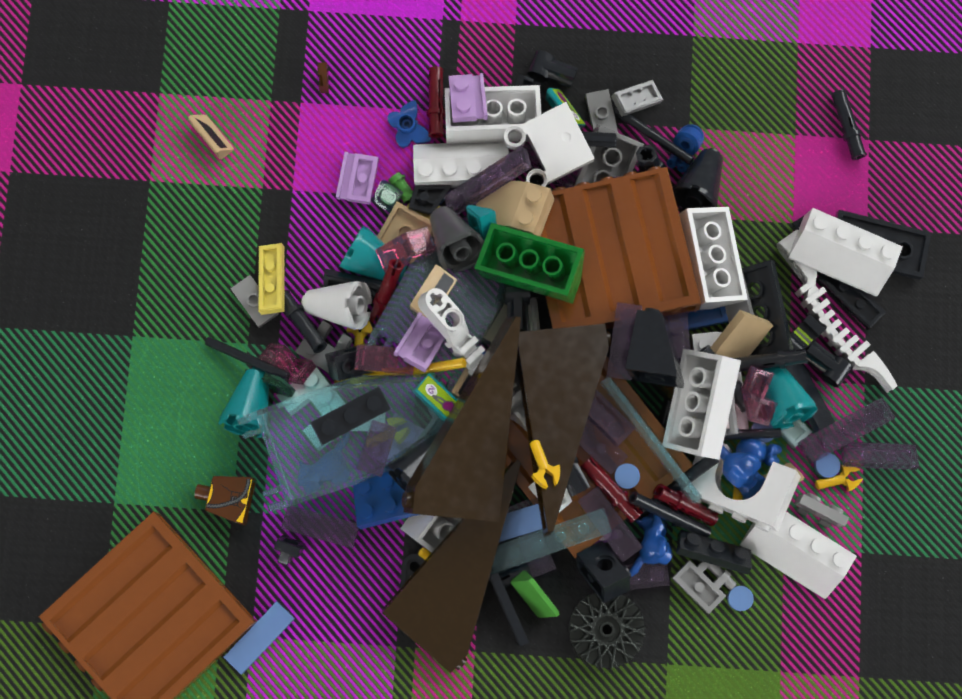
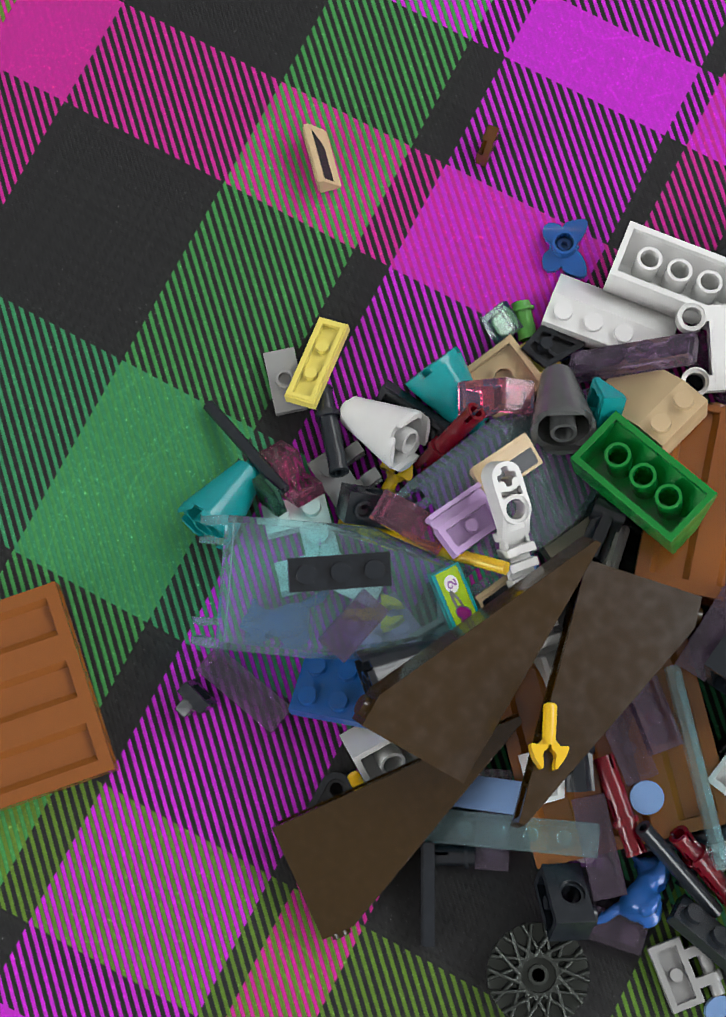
camera: 30 degrees right, 0 degrees up
(228, 497) = (150, 604): reddish brown torso -> none
(259, 637) = (112, 790): medium blue tile -> none
(357, 178) = (474, 285): lavender plate -> none
(436, 112) = (607, 244): dark red pin -> none
(467, 97) = (654, 244): lavender plate -> none
(534, 595) = (466, 892): bright green slope -> none

